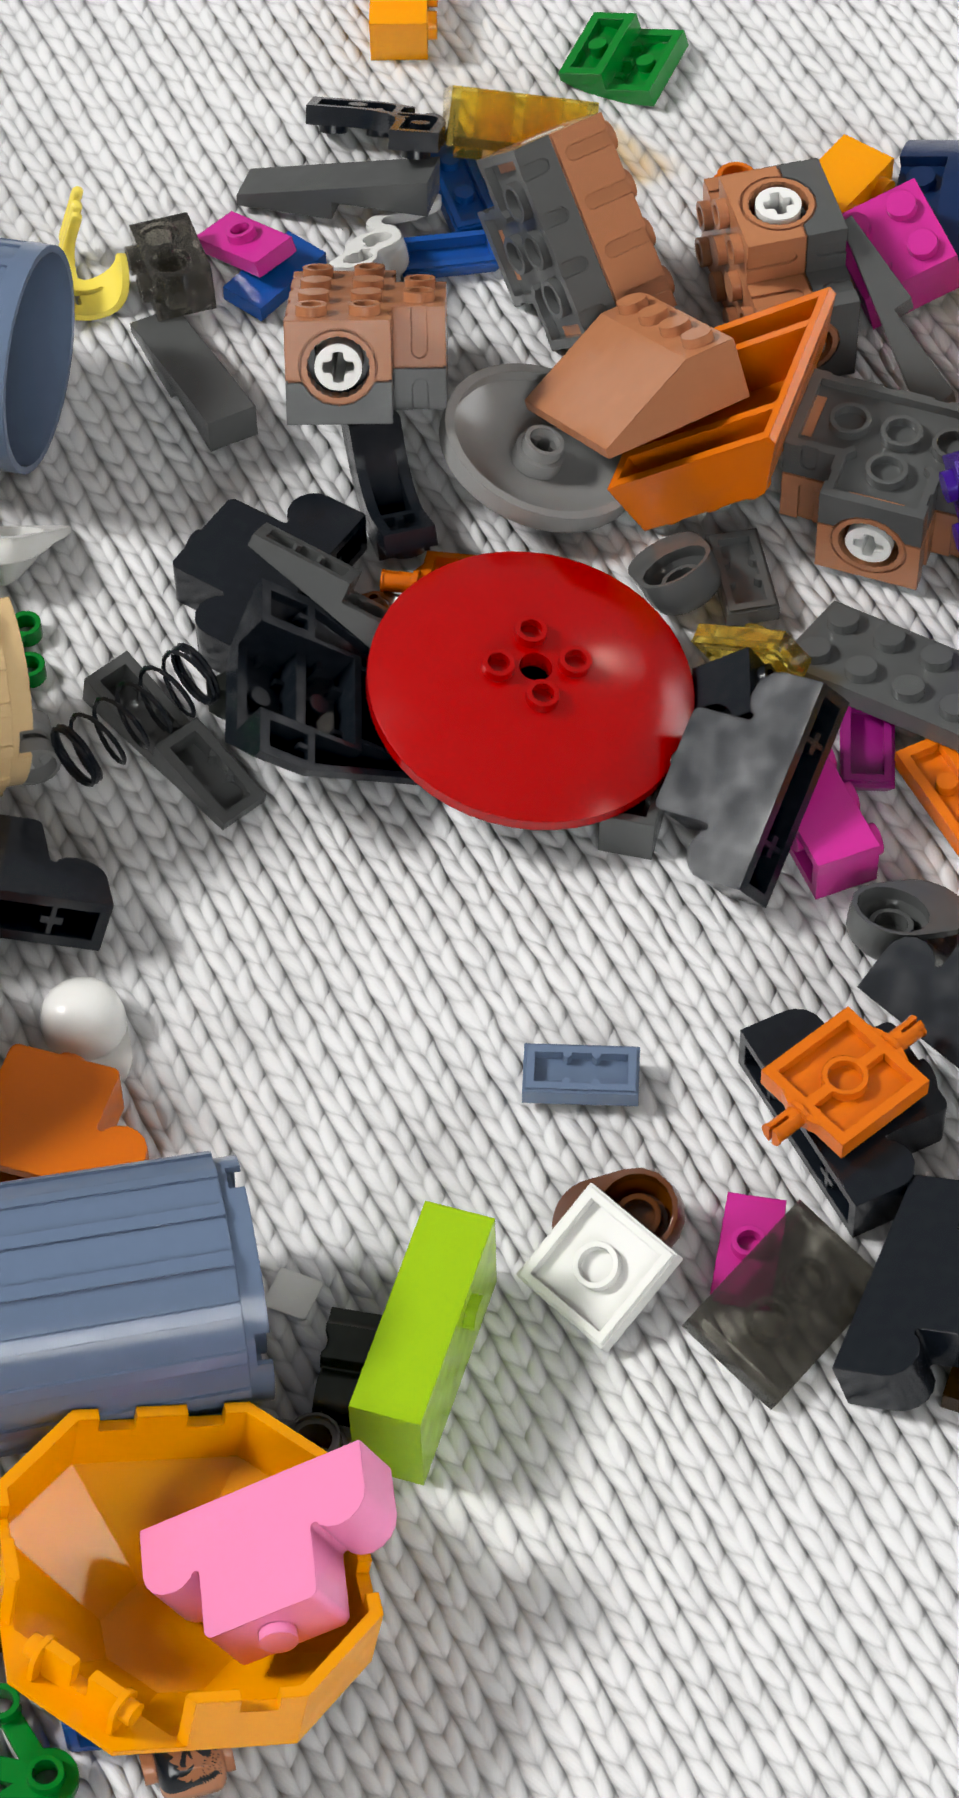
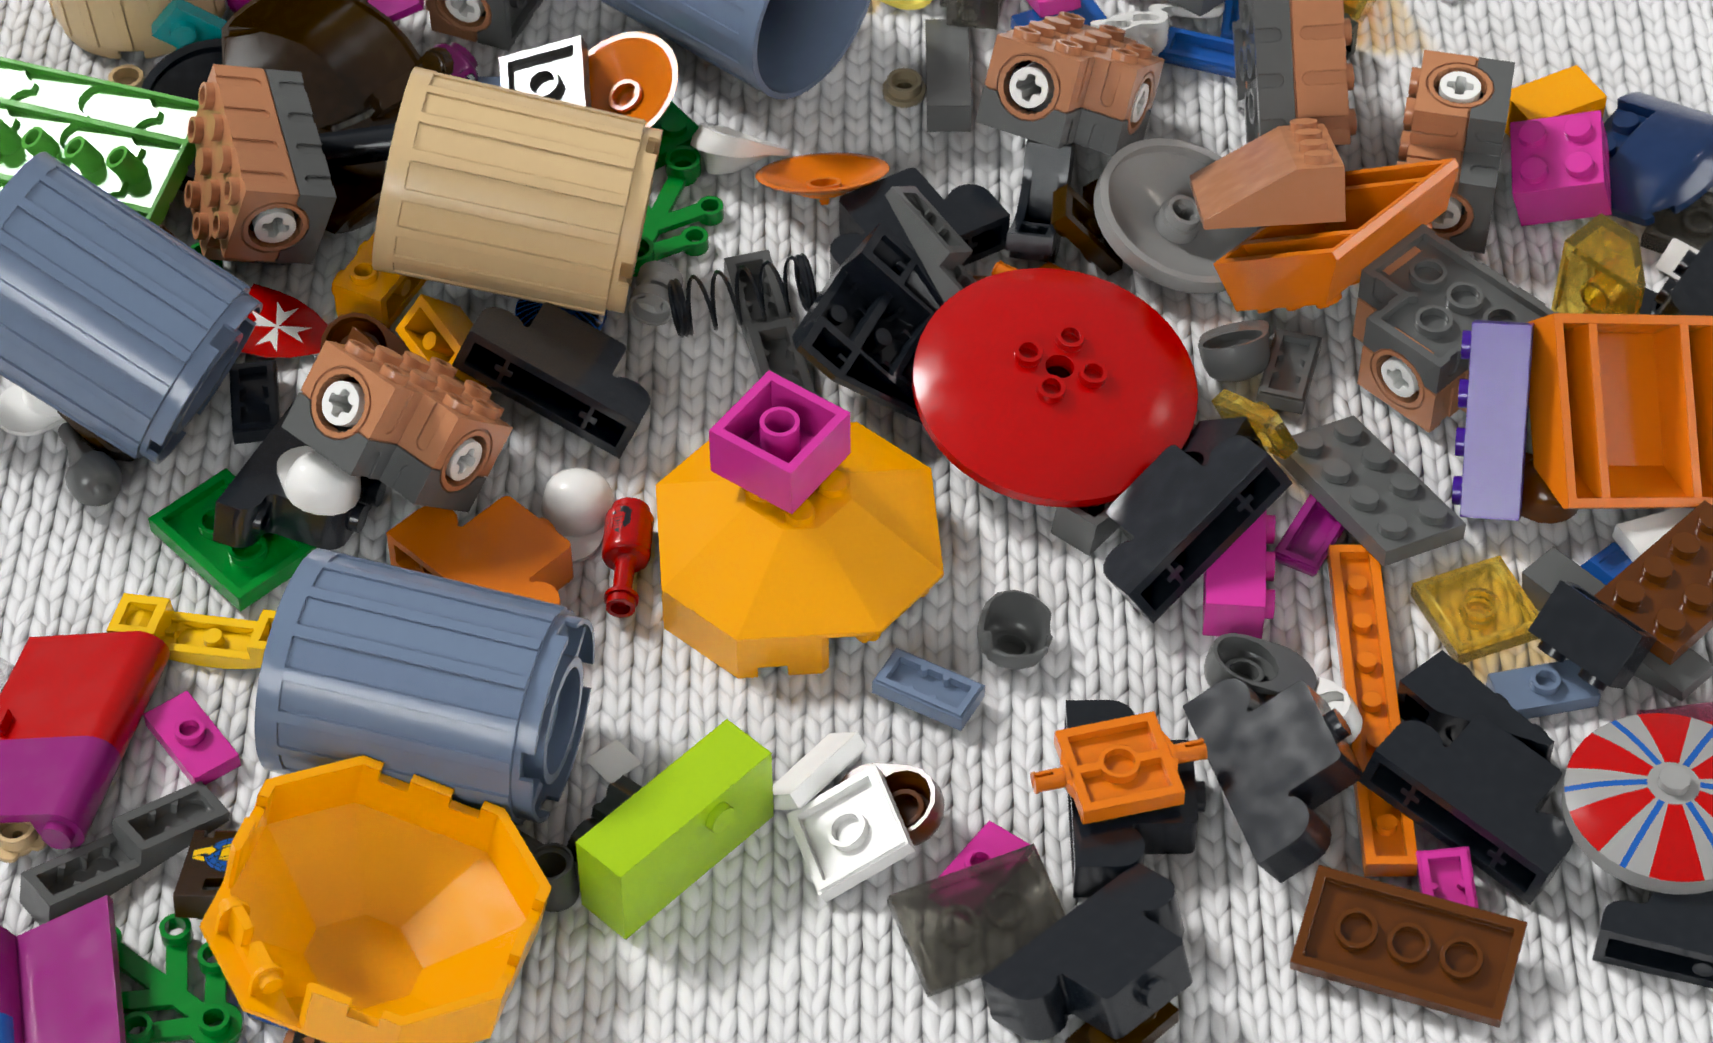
camera: 25 degrees right, 5 degrees down
(131, 540) = (822, 174): none -> orange hat
(156, 410) = (904, 88): none -> dark tan plate
(173, 1053) = (626, 551): none -> red piece
(269, 1557) = (447, 923): bright pink brick -> none
(323, 871) = (780, 441): none -> dark pink brick
(352, 973) = (776, 585): none -> light orange windscreen
(443, 496) = (1076, 220): none -> dark brown plate
(522, 1210) = (816, 770): none -> white tile
(636, 974) = (1014, 630): none -> dark grey hair
(891, 303) = (1524, 202): dark grey slope -> none

